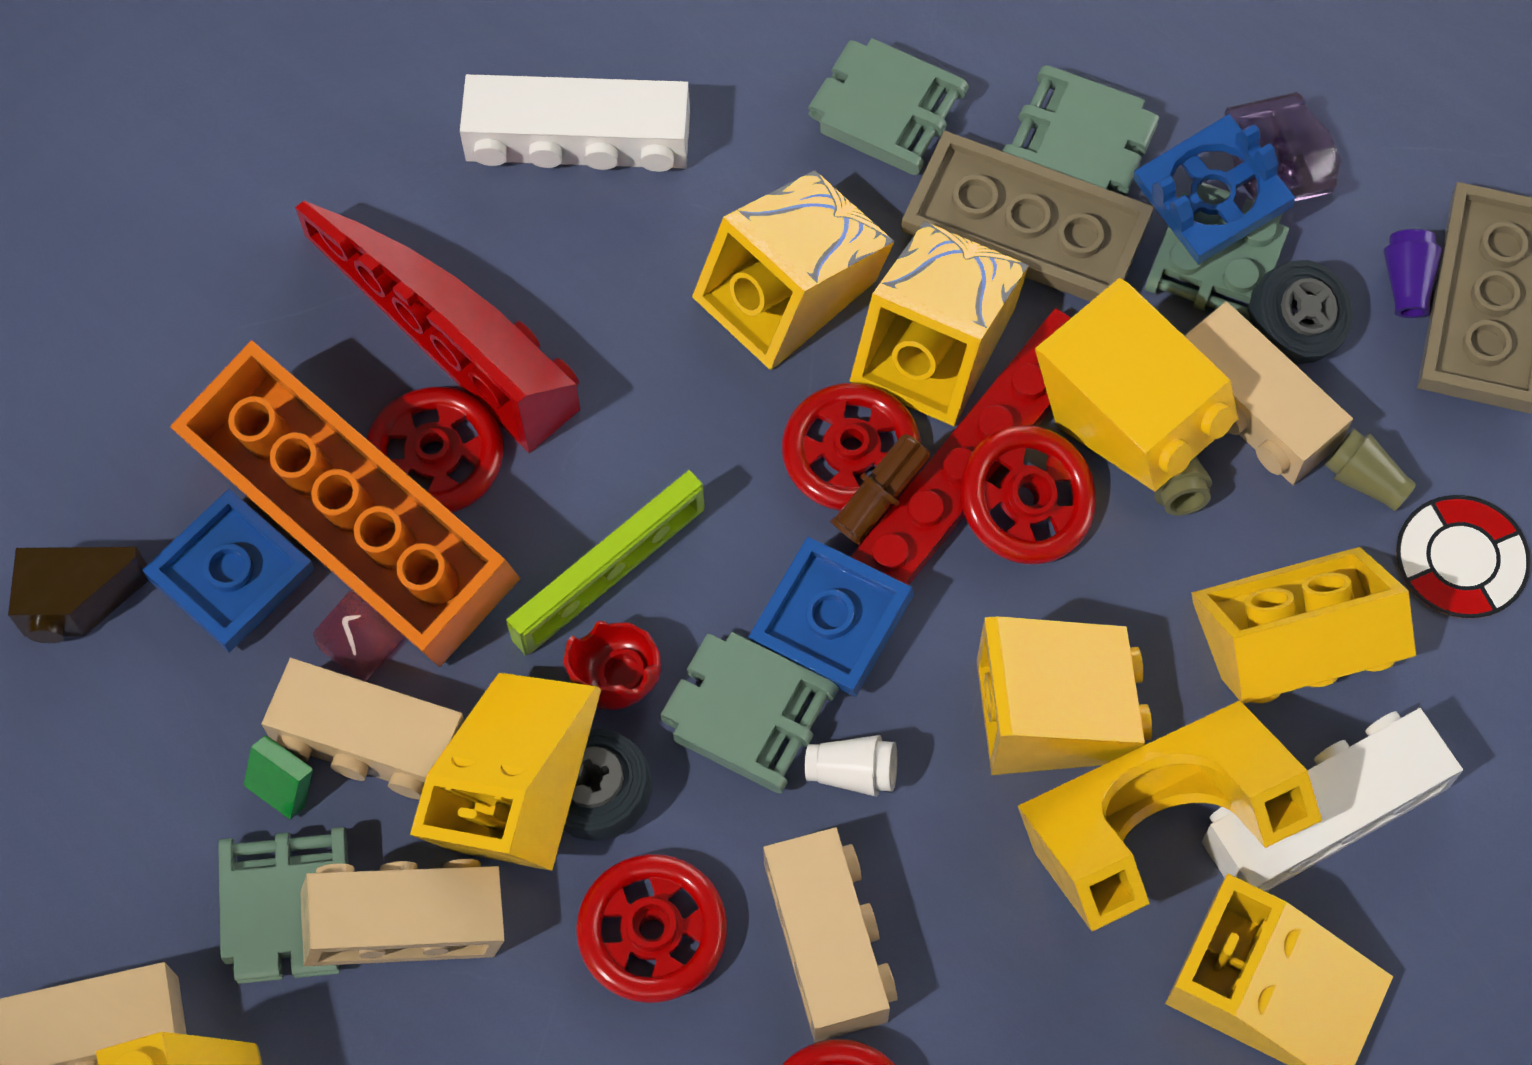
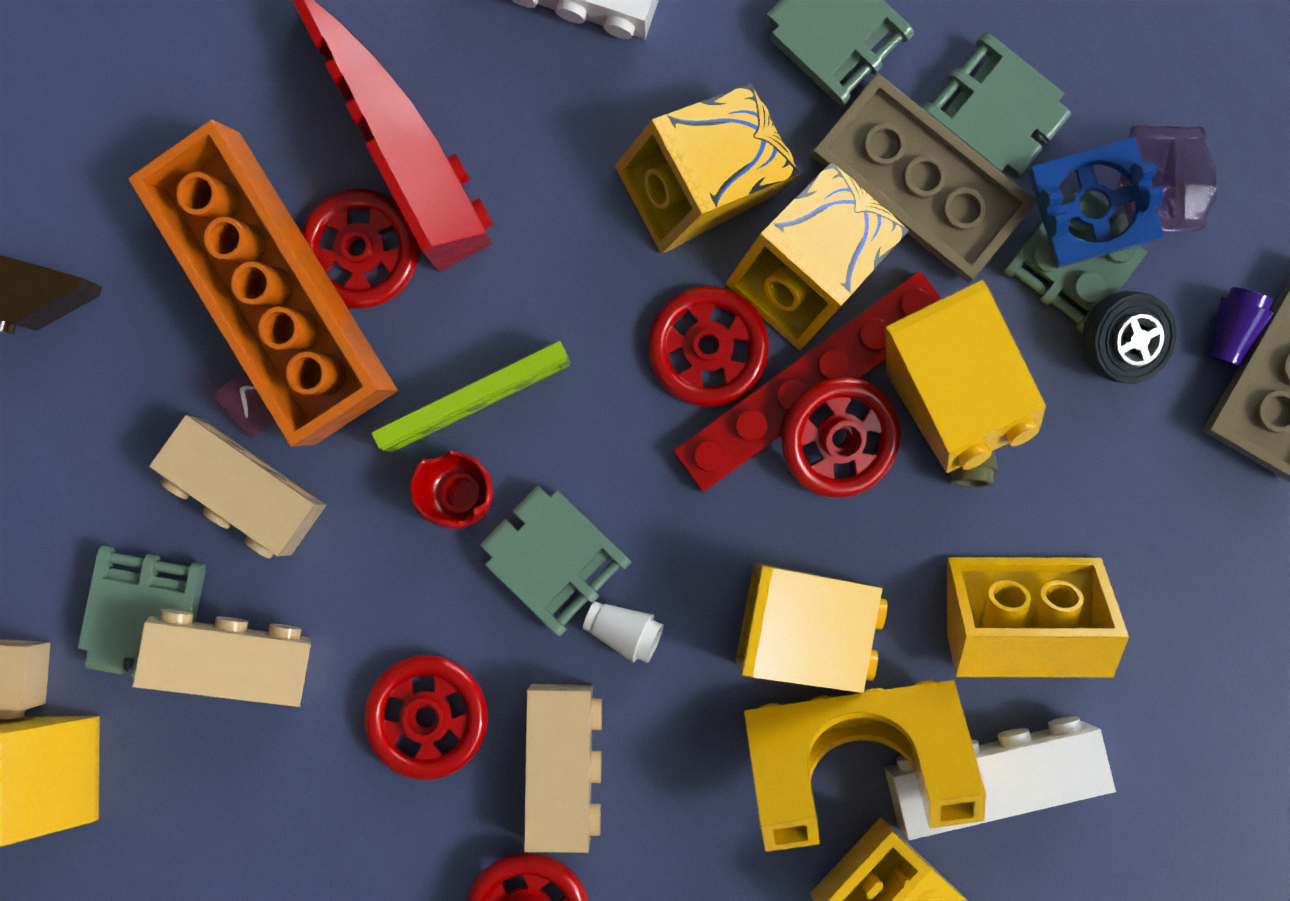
camera: 15 degrees right, 20 degrees up
(228, 570) = (155, 315): blue plate -> none
(278, 777) = (158, 507): green tile -> none
(509, 772) = (338, 569): yellow slope -> none
(617, 800) = (432, 587): black wheel -> none
(832, 615) = (643, 499): blue plate -> none
(881, 488) = (718, 400): reddish brown axle -> none
(1276, 403) = (1079, 418): tan brick -> none
(1369, 470) = (1134, 496): olive cone -> none
(1463, 556) = (1184, 589): sticker -> none

